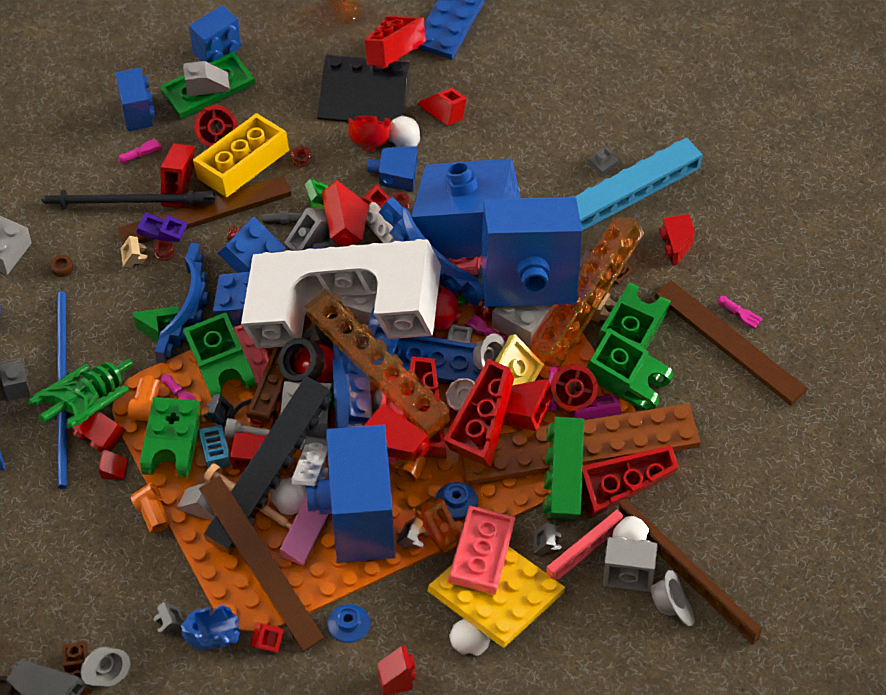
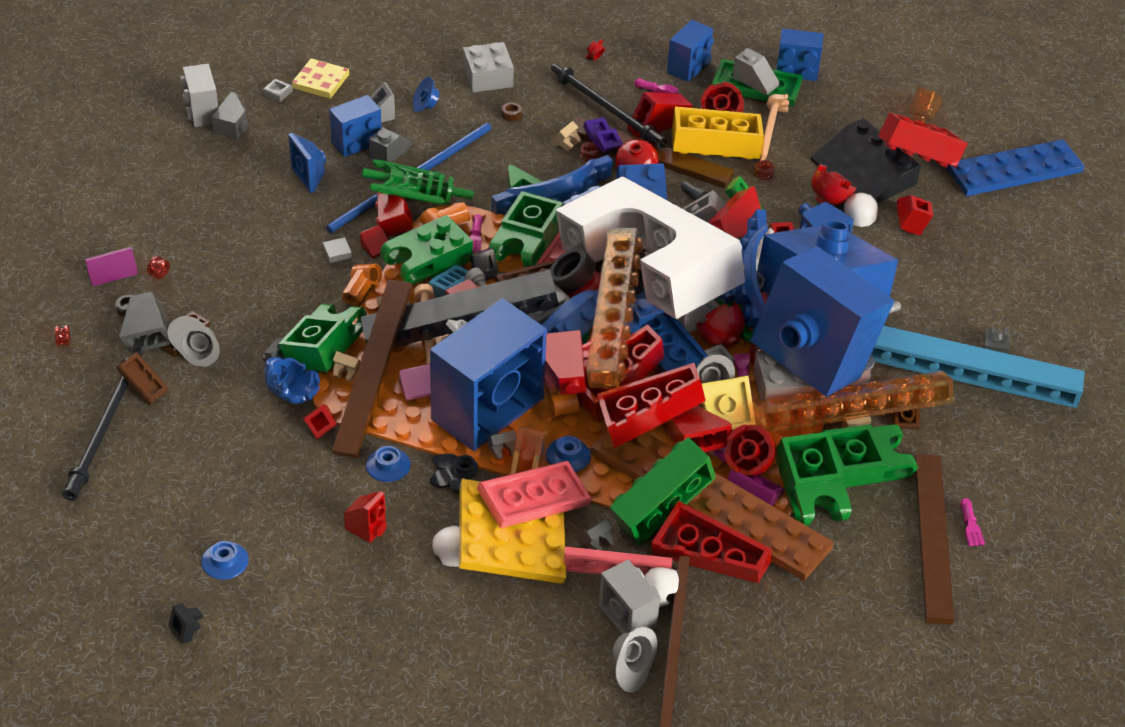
camera: 45 degrees right, 10 degrees down
(56, 157) = (595, 50): none -> red plate
(92, 497) = (337, 250): none -> light grey tile
(189, 574) = (321, 335): none -> green brick
(210, 228) = (635, 153): none -> red cylinder
(229, 579) = (345, 362): none -> tan tile
(243, 91) = (775, 103): none -> light nougat piece
(398, 588) = (453, 470): none -> black plate
(678, 235) = (986, 432): red slope -> none

